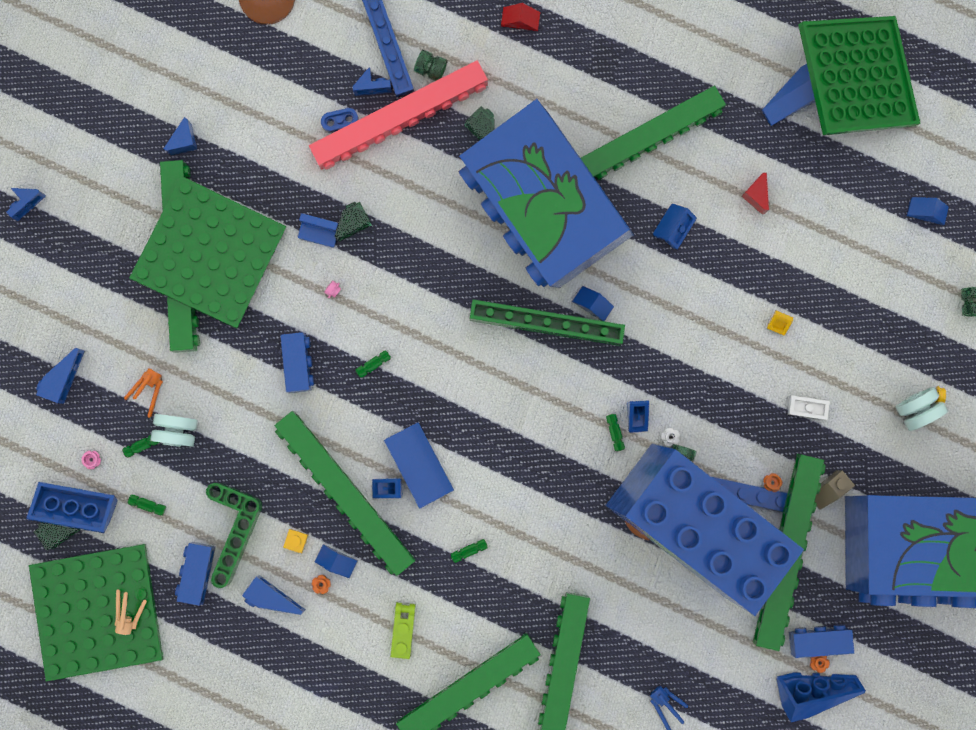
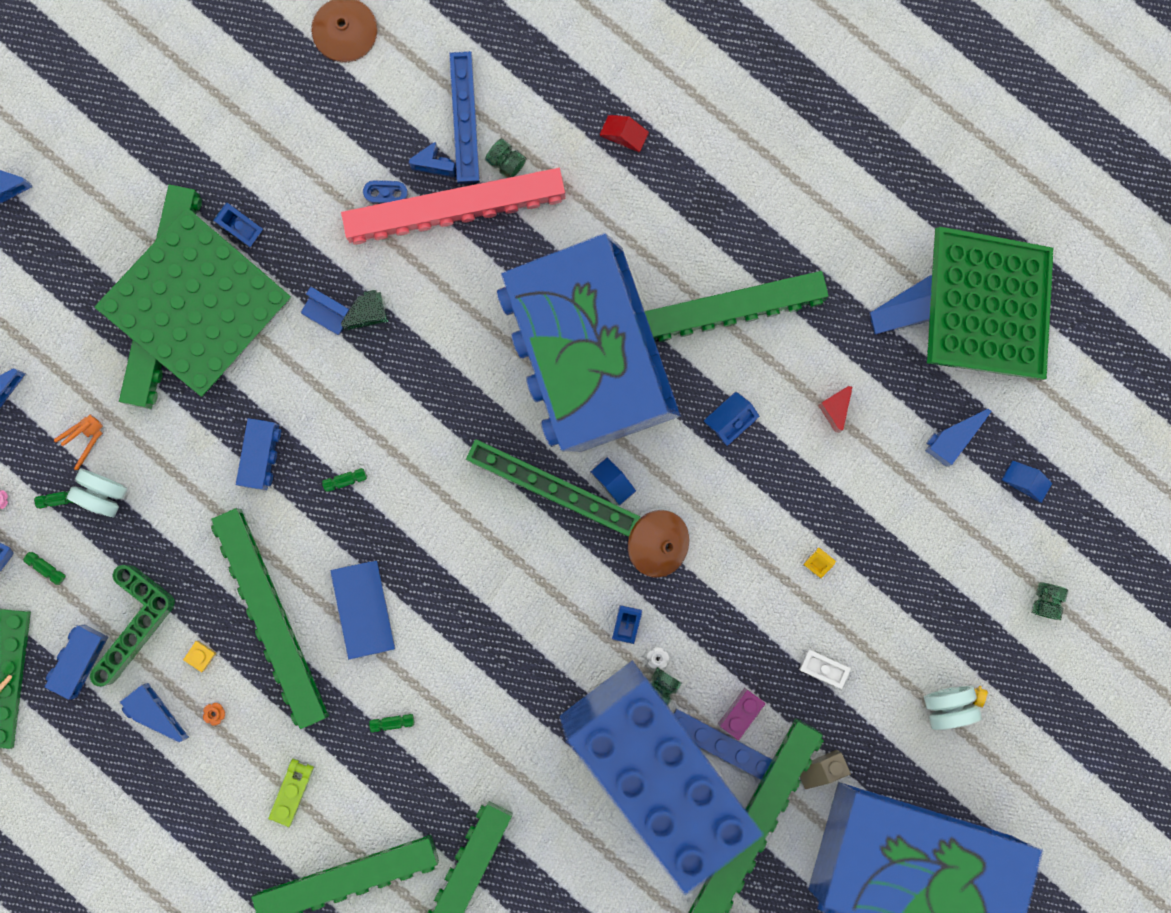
camera: 15 degrees right, 0 degrees up
(182, 139) = (202, 165): blue slope -> none
(226, 179) = (237, 224): none -> blue slope
(332, 289) = (322, 382): bright pink plate -> none
(335, 561) = (237, 692): blue slope -> none
(387, 488) = (320, 626): blue slope -> none
(481, 123) = (544, 239): clear green slope -> none
(615, 432) = (596, 635): green axle -> none
(638, 343) = (649, 540): none -> dark orange dish
(752, 462) = (741, 714): none -> magenta brick
(777, 482) = (765, 743): orange plate -> none
(857, 197) = (950, 442): none -> blue slope

